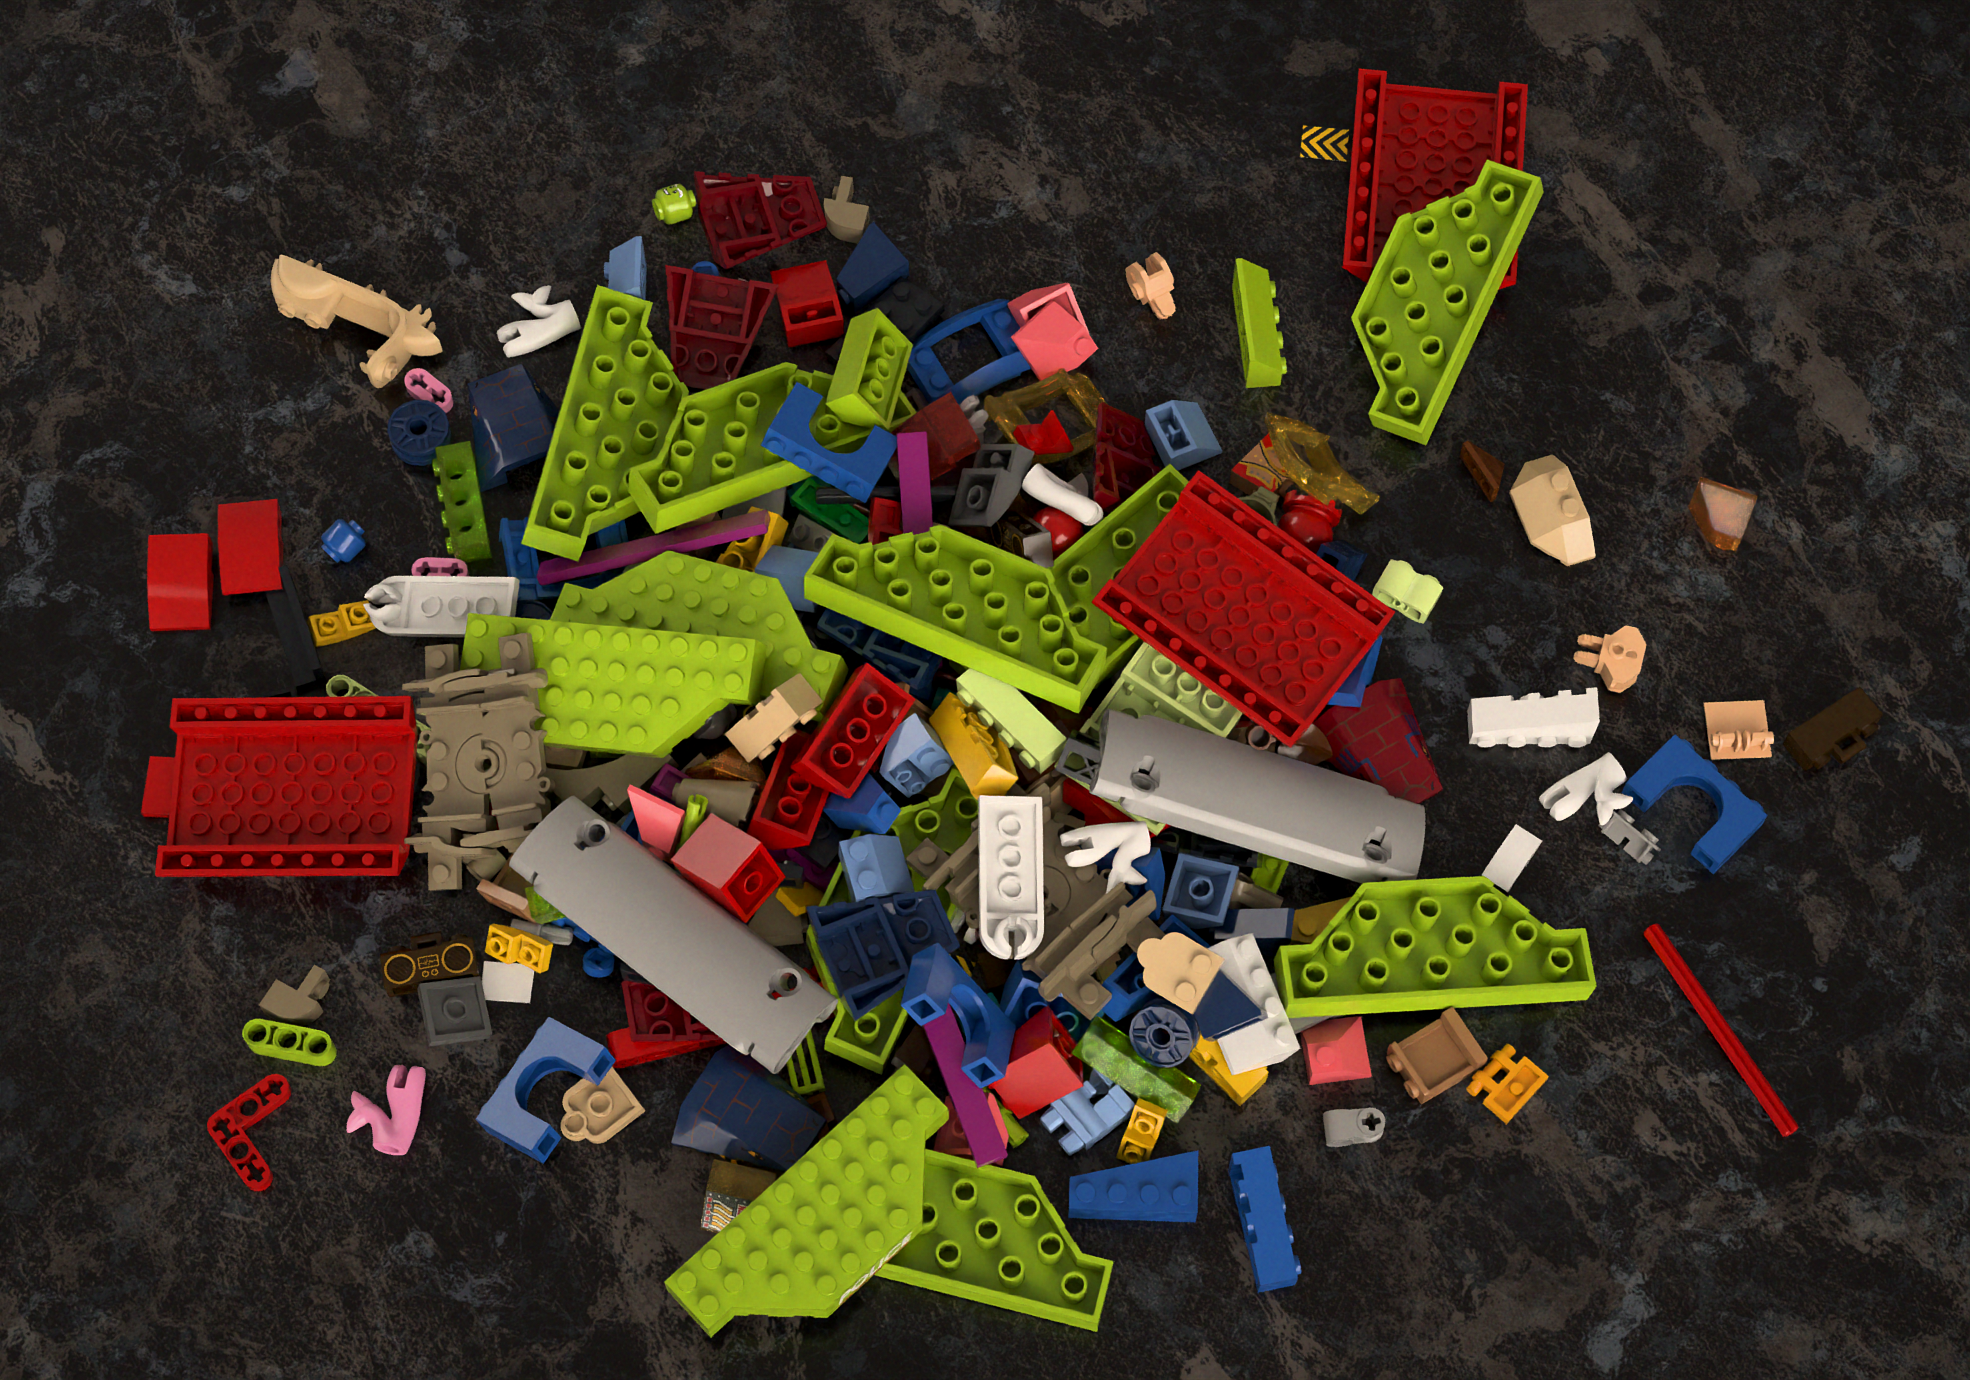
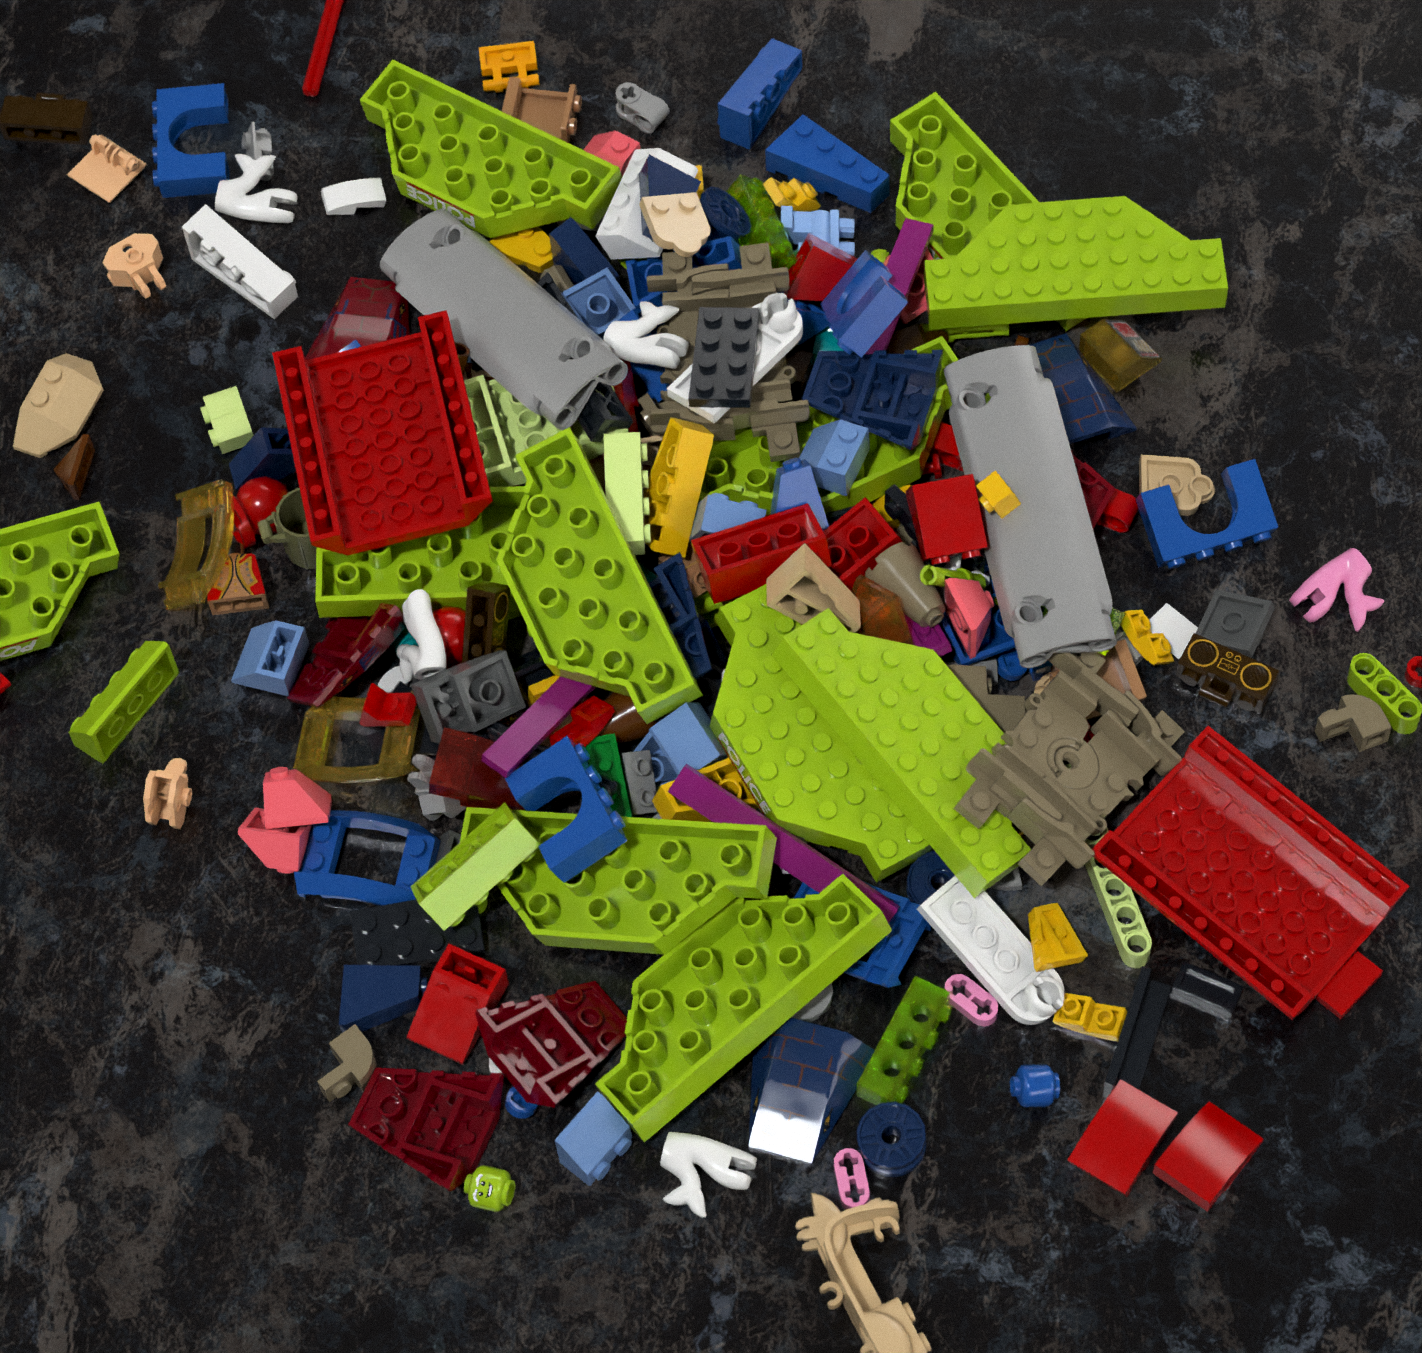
camera: 135 degrees left, 5 degrees down
(404, 648) = (1053, 938): none -> yellow wing
(690, 898) = (997, 495): none -> yellow plate
(1018, 856) = (724, 357): none -> black plate

